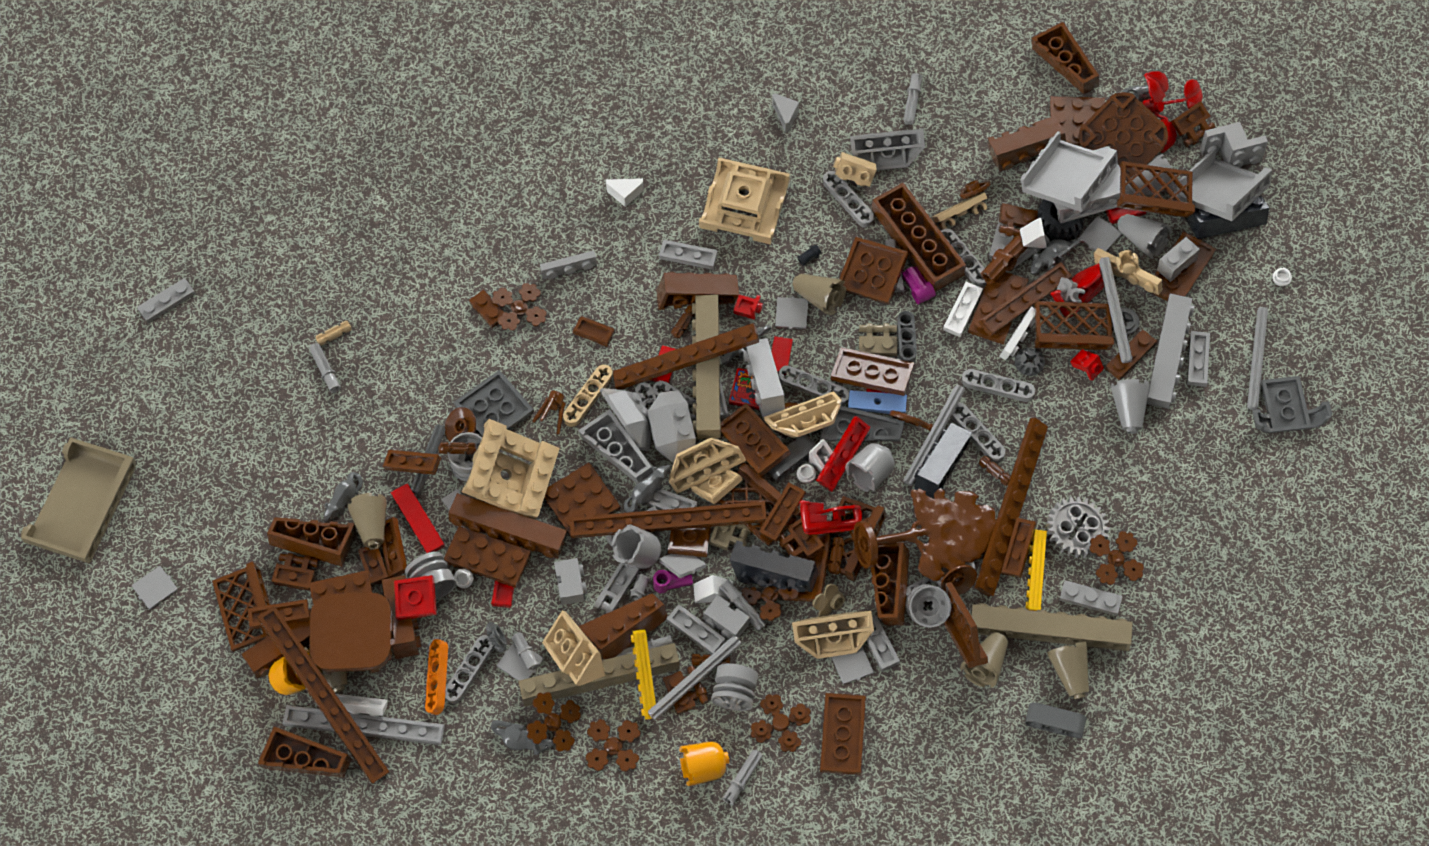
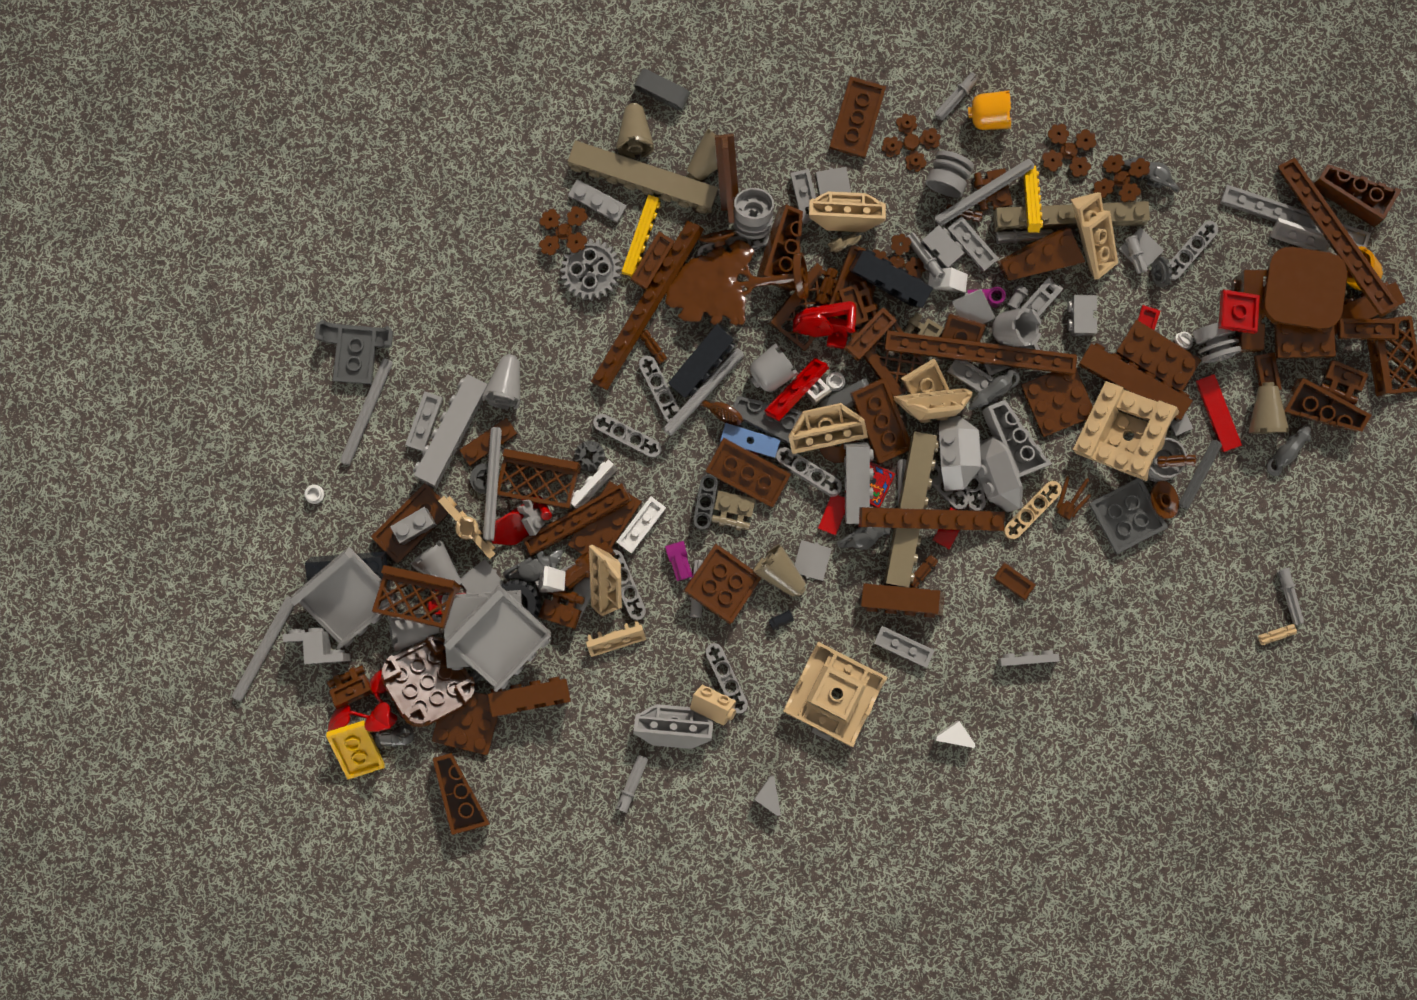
camera: 170 degrees left, 20 degrees up
(393, 549) = (1246, 384): reddish brown plate -> none
(412, 462) = (1219, 468): reddish brown plate -> none
(436, 697) = (1222, 247): orange beam -> none
(486, 308) = (1117, 629): reddish brown plate -> none
(519, 307) = (1085, 623): reddish brown plant -> none
(748, 306) = (855, 573): red bracket -> none
(919, 236) = (667, 612): reddish brown brick -> none
(974, 188) = (596, 657): reddish brown animal -> none
(982, 245) = (604, 581): none -> tan wedge
(1088, 363) = (534, 439): red bracket -> none
(1175, 69) = (355, 750): none -> yellow plate
(1283, 141) = (263, 649): none -> light grey axle

